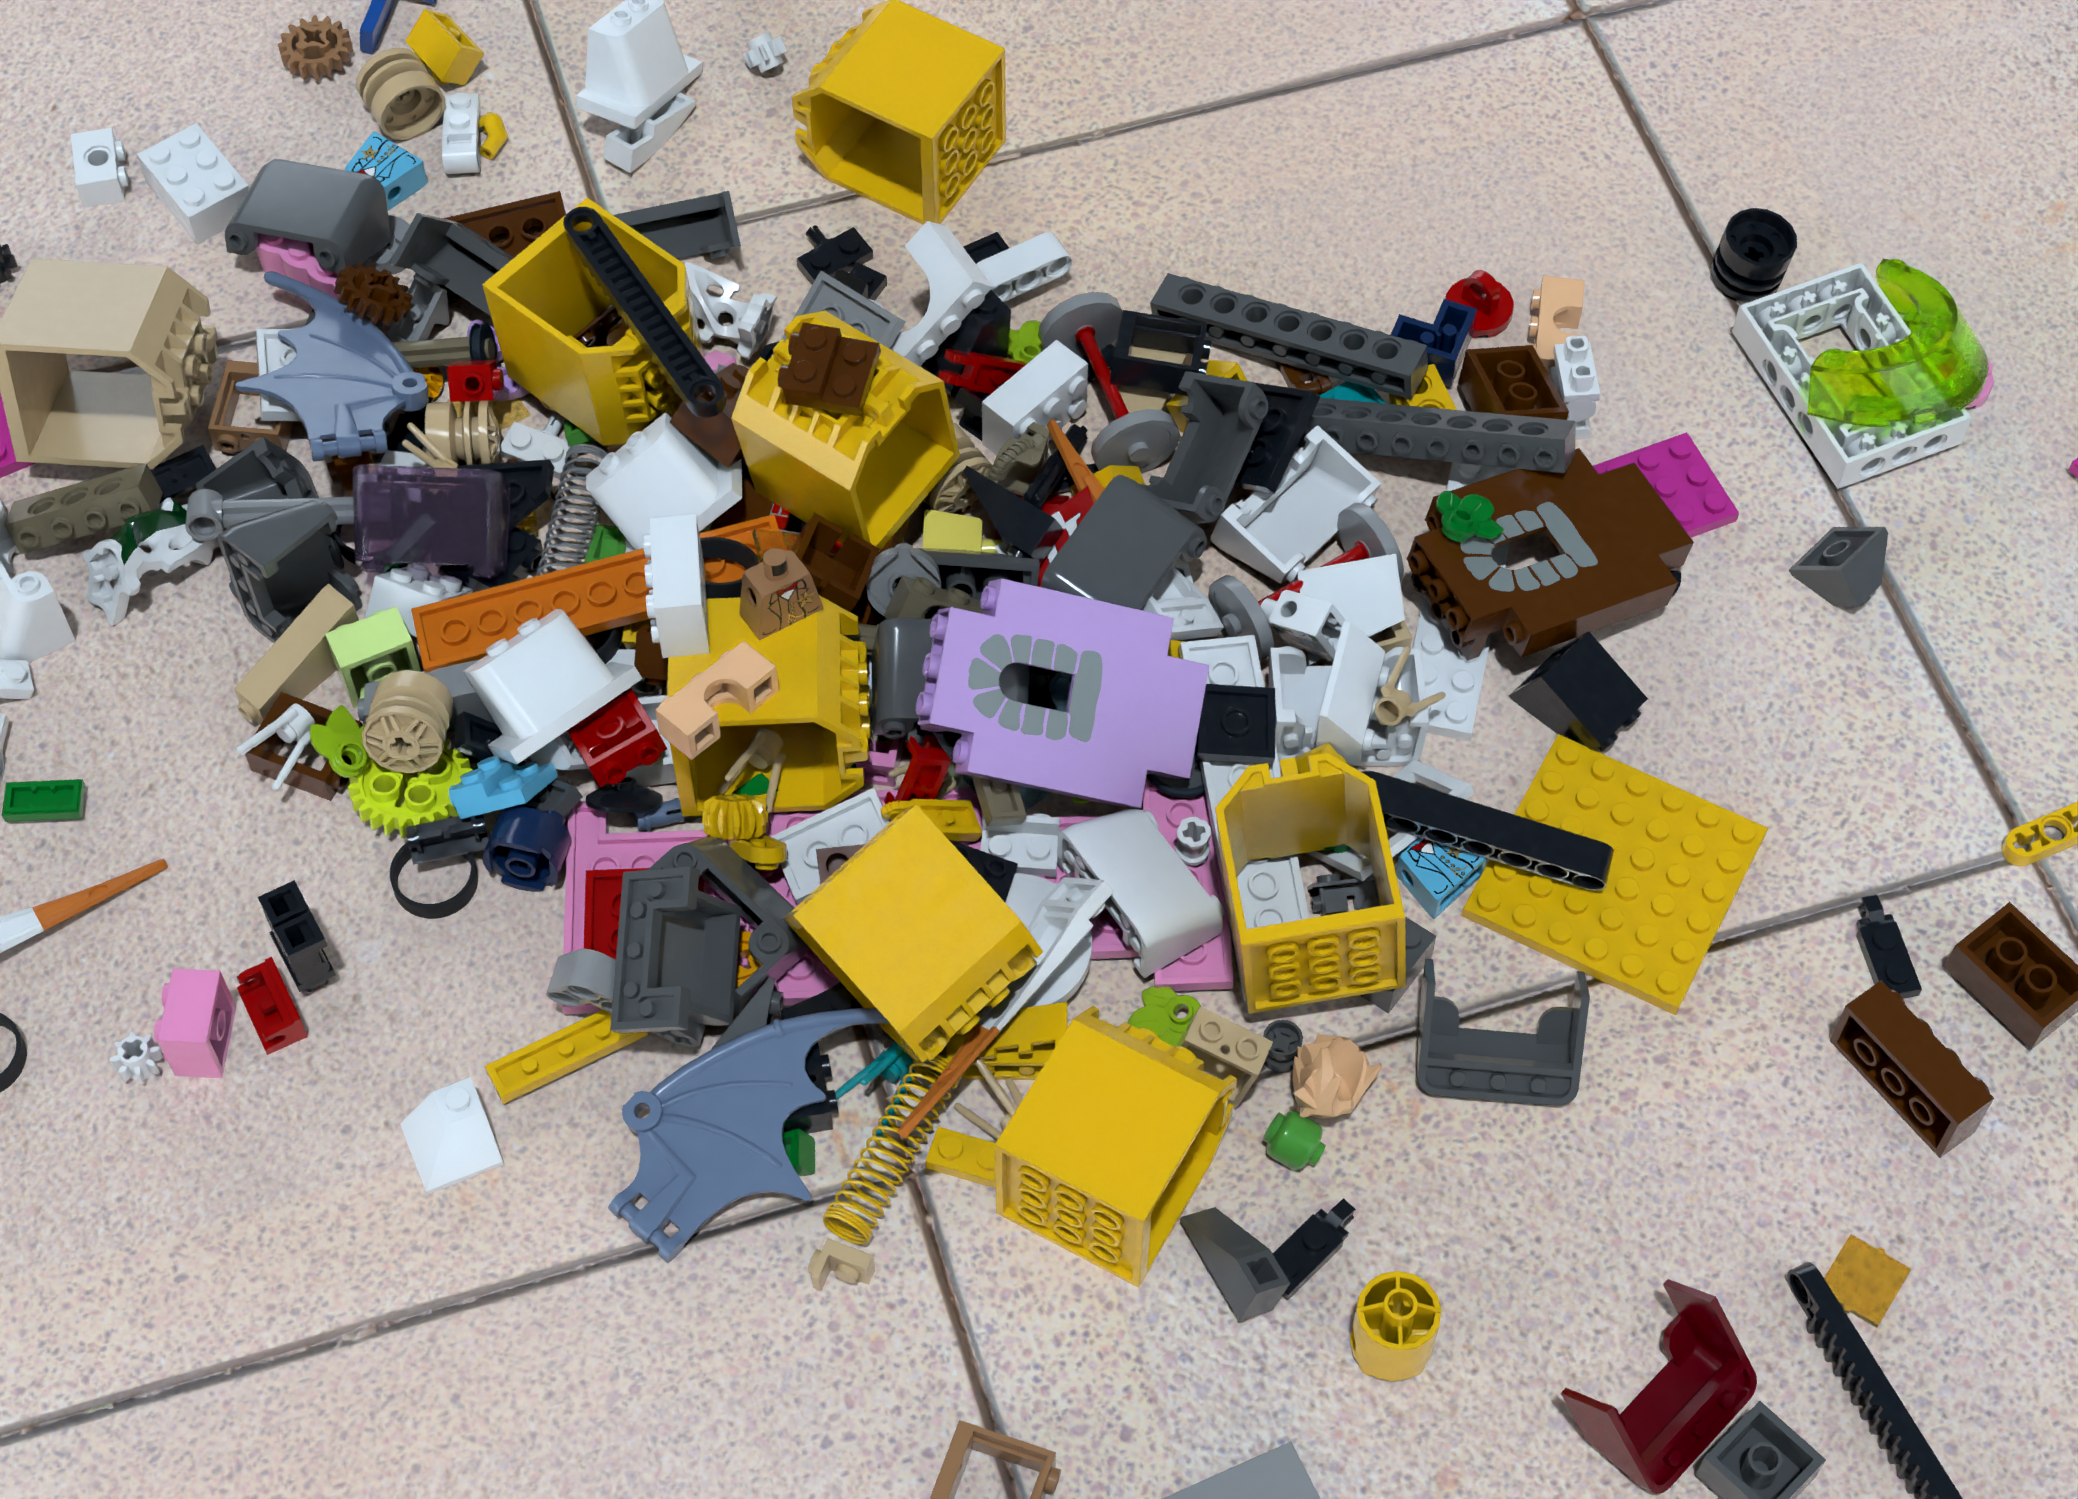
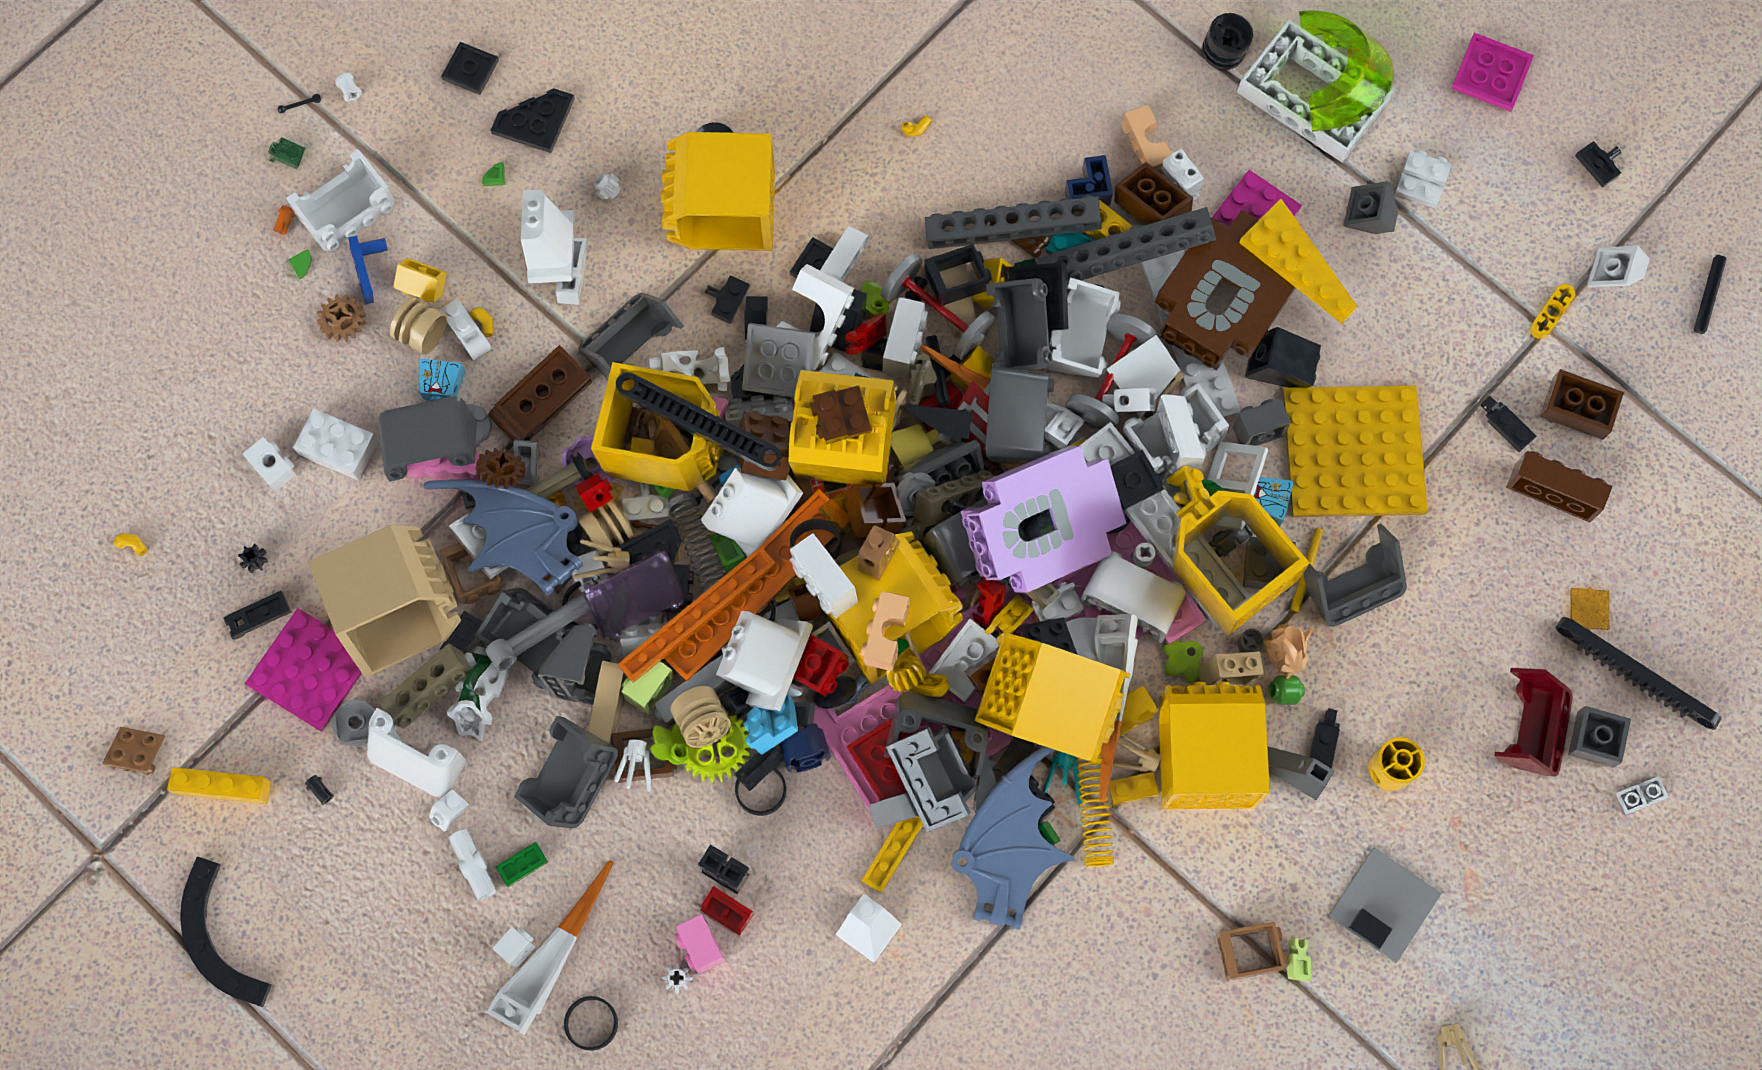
camera: 30 degrees left, 15 degrees up
(188, 721) = (569, 776): none -> dark grey windscreen
(450, 257) = (553, 422): dark grey windscreen -> none
(492, 584) = (696, 614): none -> orange plate
(846, 1262) = (1111, 880): tan bracket -> none
(1235, 175) = (916, 129): none -> yellow arm
(1396, 703) = (1207, 424): tan plant -> none
(1444, 989) = (1311, 556): none -> yellow bar
(1467, 517) = (1184, 295): green plate -> none
(1489, 755) = (1261, 423): none -> dark grey brick
(1490, 299) = (1096, 142): red tile -> none
(1493, 833) = (1289, 471): black beam -> none
(1673, 550) = (1289, 251): none -> yellow wing
(1951, 563) = (1423, 178): none -> white plate

